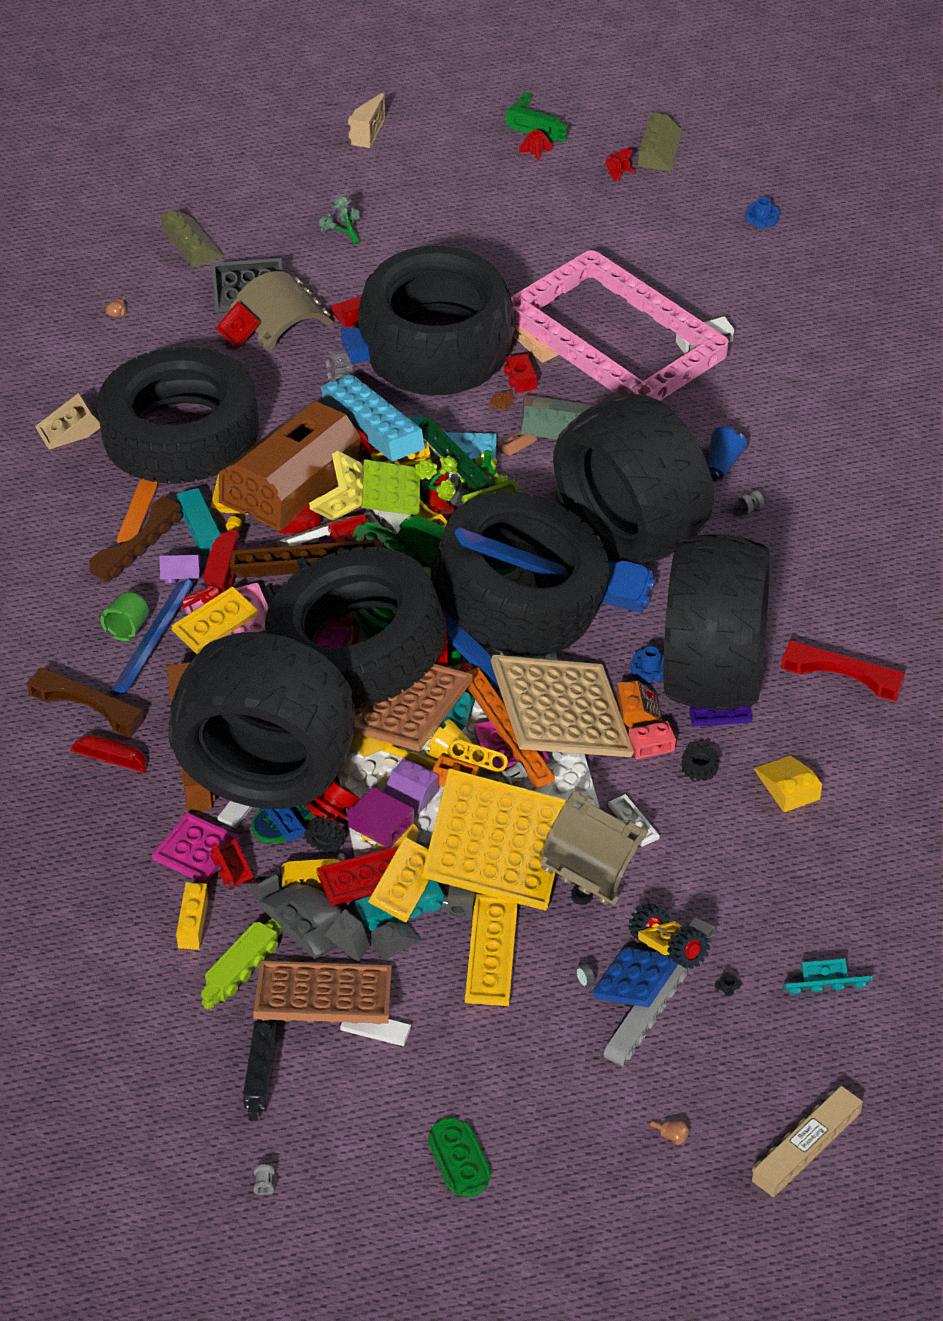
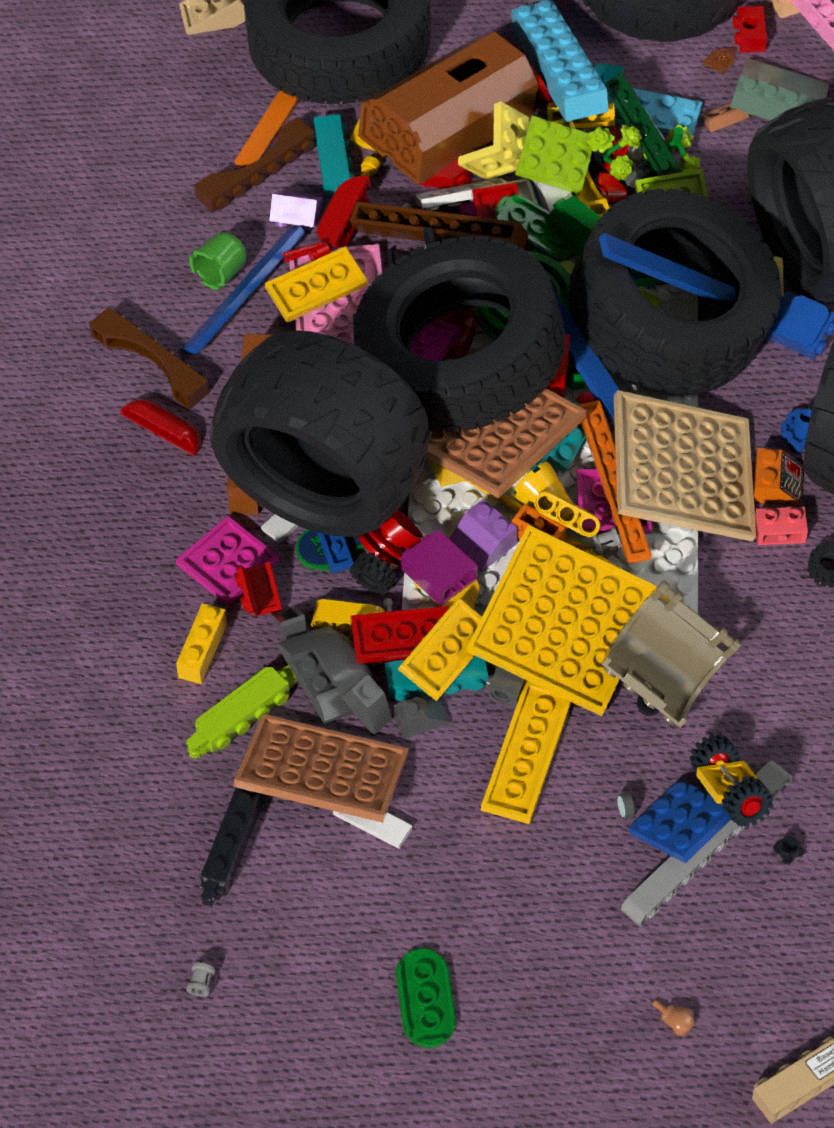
camera: 15 degrees right, 10 degrees up
(626, 811) = (734, 620): white tile -> none

